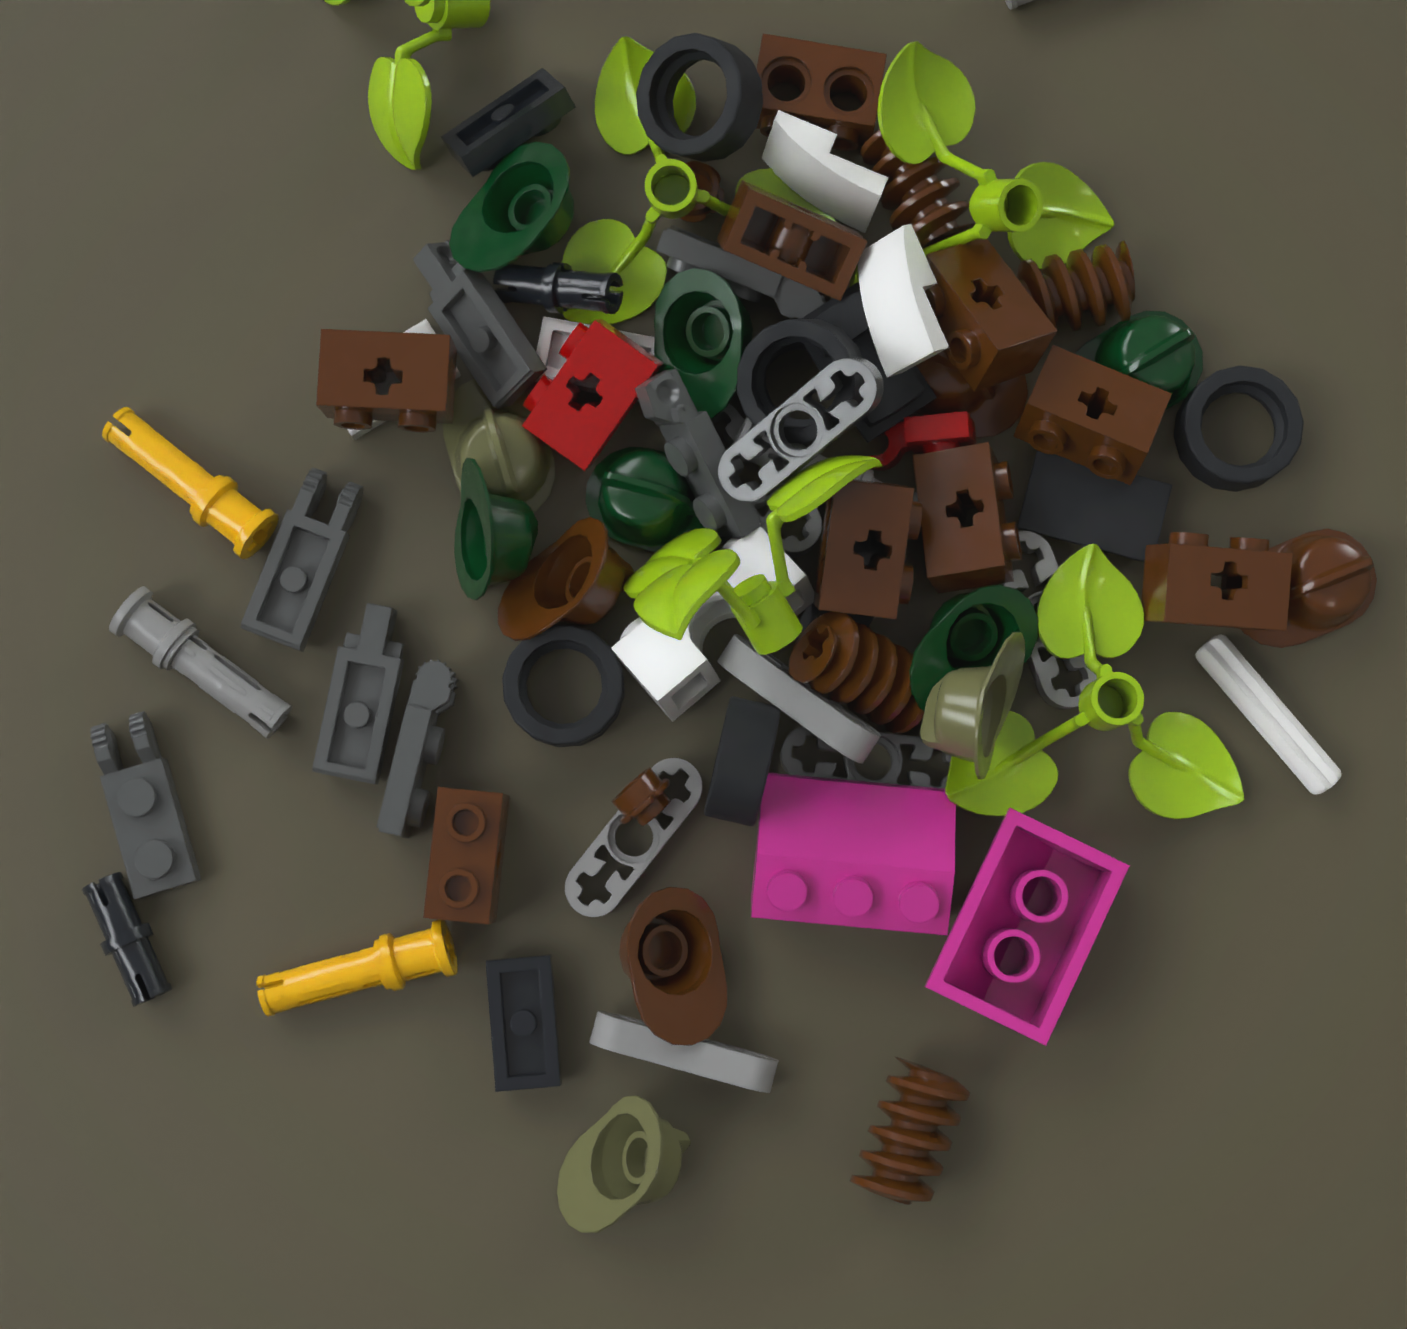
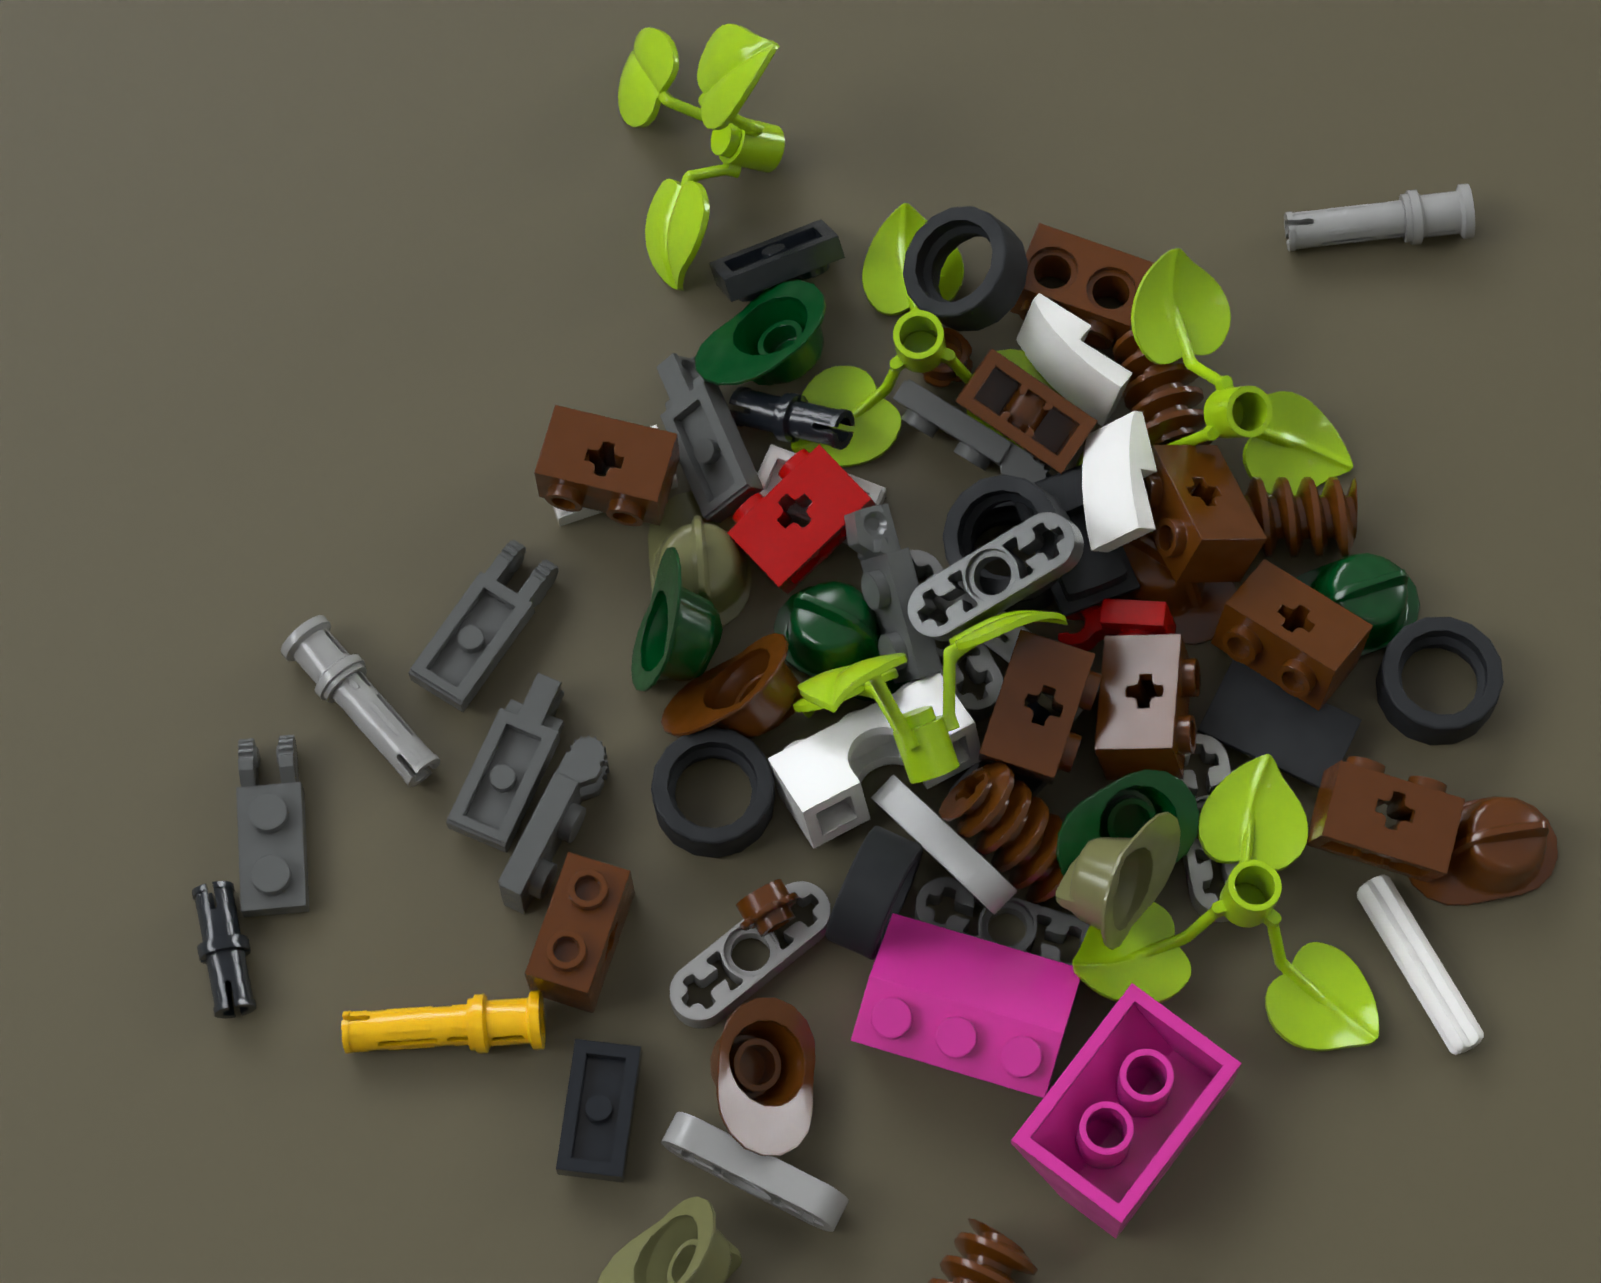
camera: 15 degrees right, 15 degrees down
(211, 498) = (409, 549): yellow pin -> none
(703, 335) = (920, 481): dark green piece -> none

